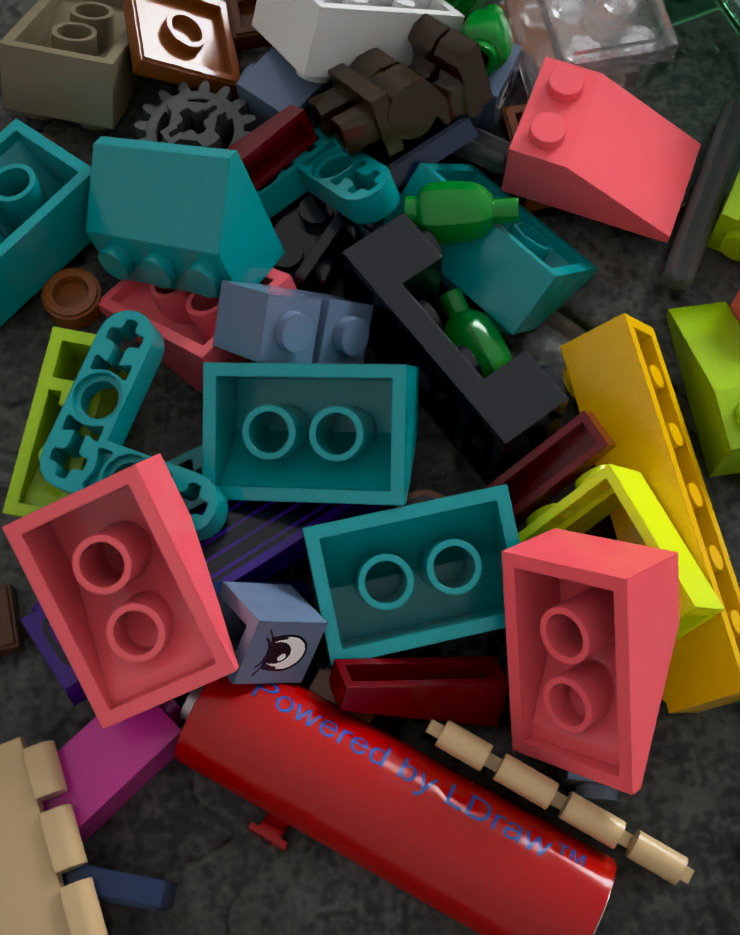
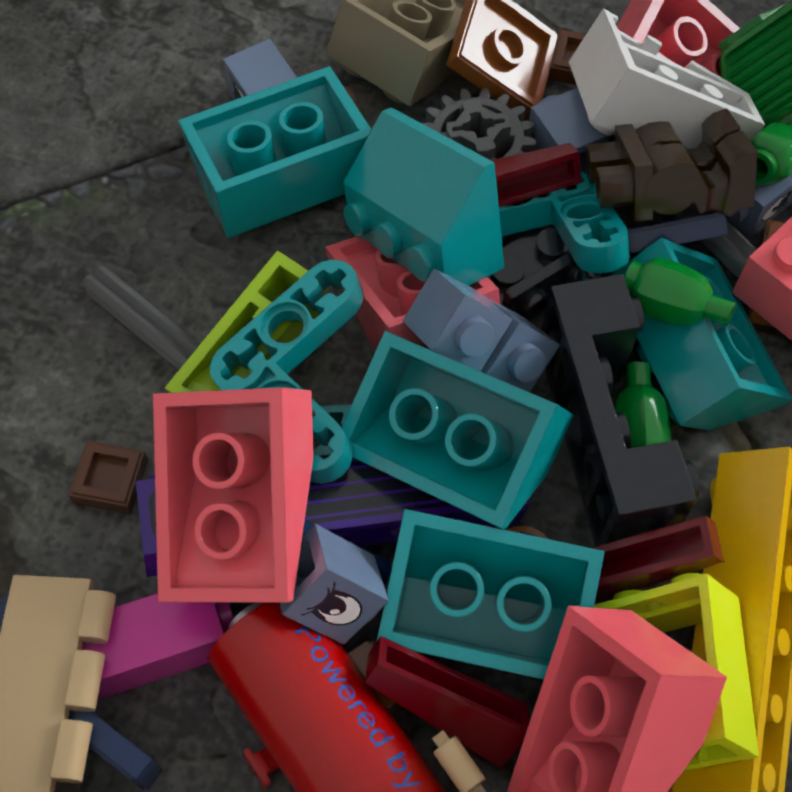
camera: 25 degrees right, 5 degrees down
(72, 298) = (308, 235): dark orange tile -> none

